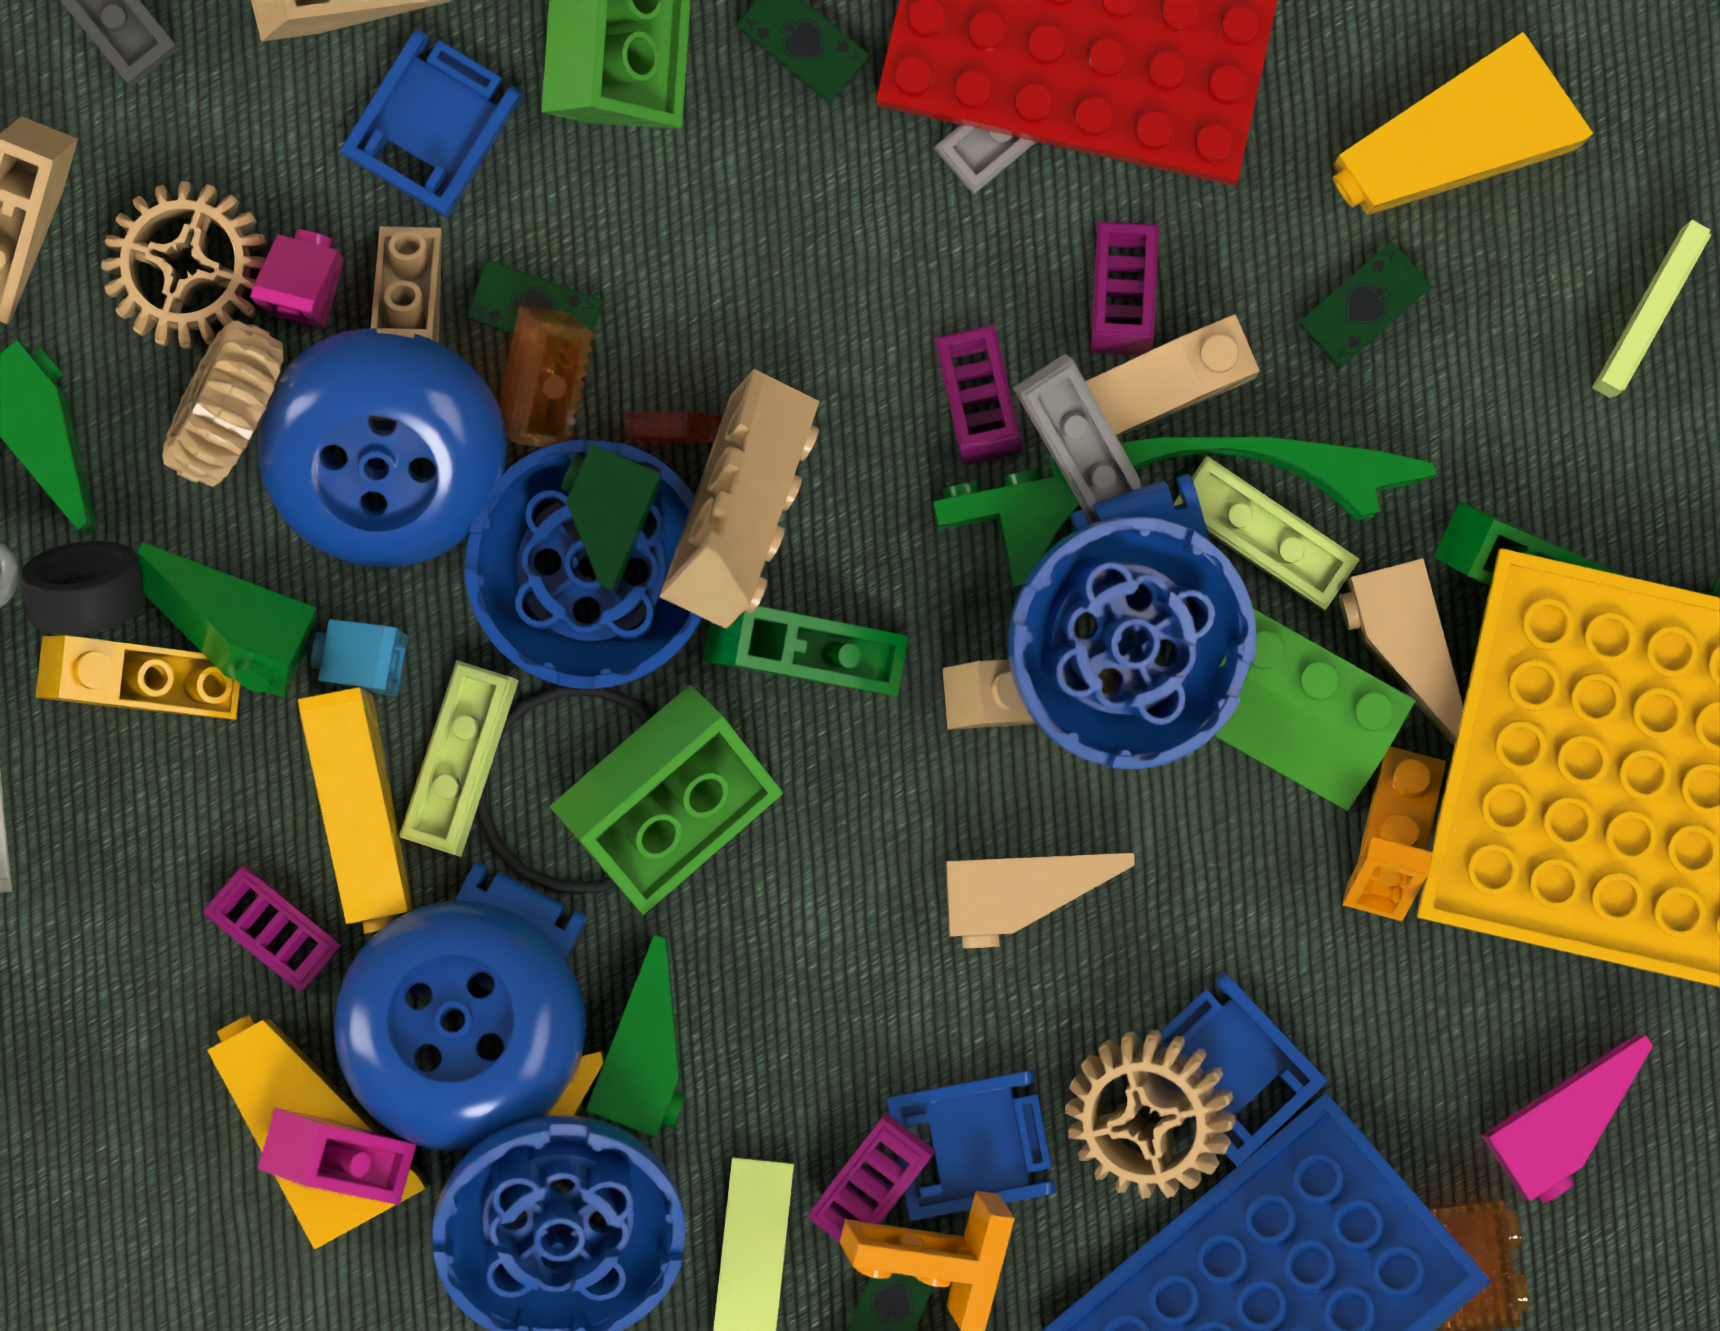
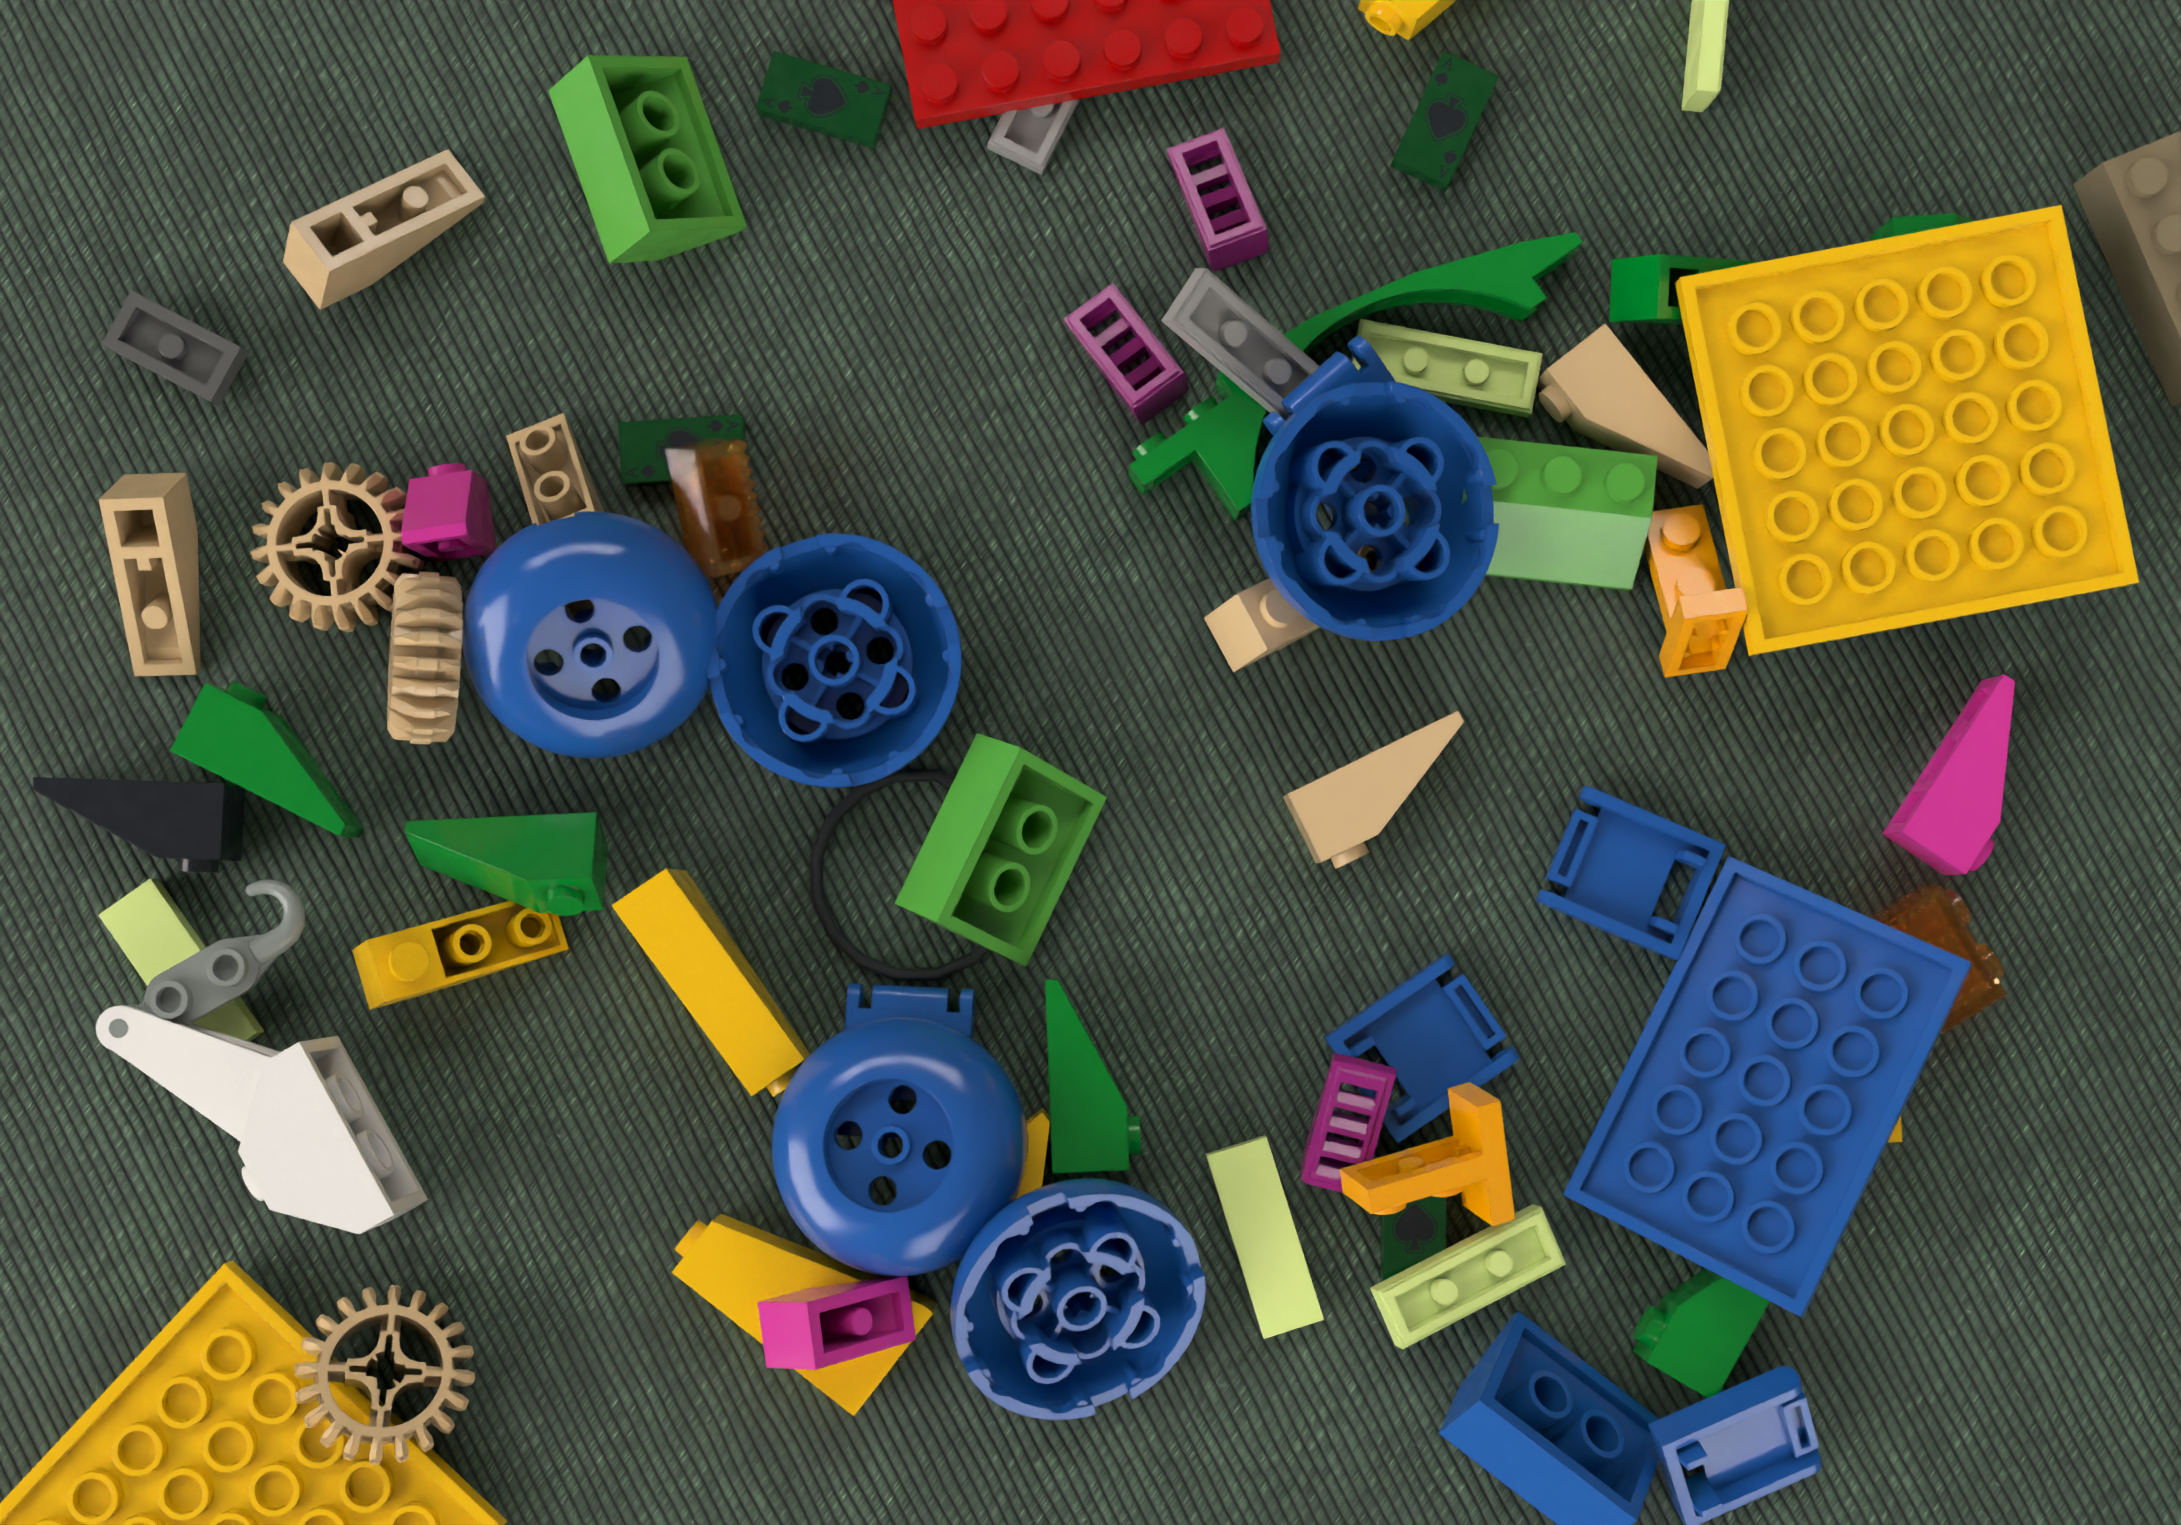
camera: 25 degrees left, 0 degrees up
(82, 587) = (367, 888): black tyre -> none
(231, 894) = (632, 1113): magenta slope -> none
(360, 656) = (658, 838): dark azure slope -> none
(437, 115) = (515, 312): blue container -> none
(458, 758) = (791, 895): yellowish green tile -> none
(609, 507) = (830, 596): dark green slope -> none
(671, 427) = (865, 500): clear red tile -> none
(741, 500) = (951, 540): tan wedge -> none
(809, 650) = (1067, 653): green slope -> none
(1155, 1139) = (1542, 979): tan gear -> none
(1175, 376) = (1306, 251): tan slope -> none

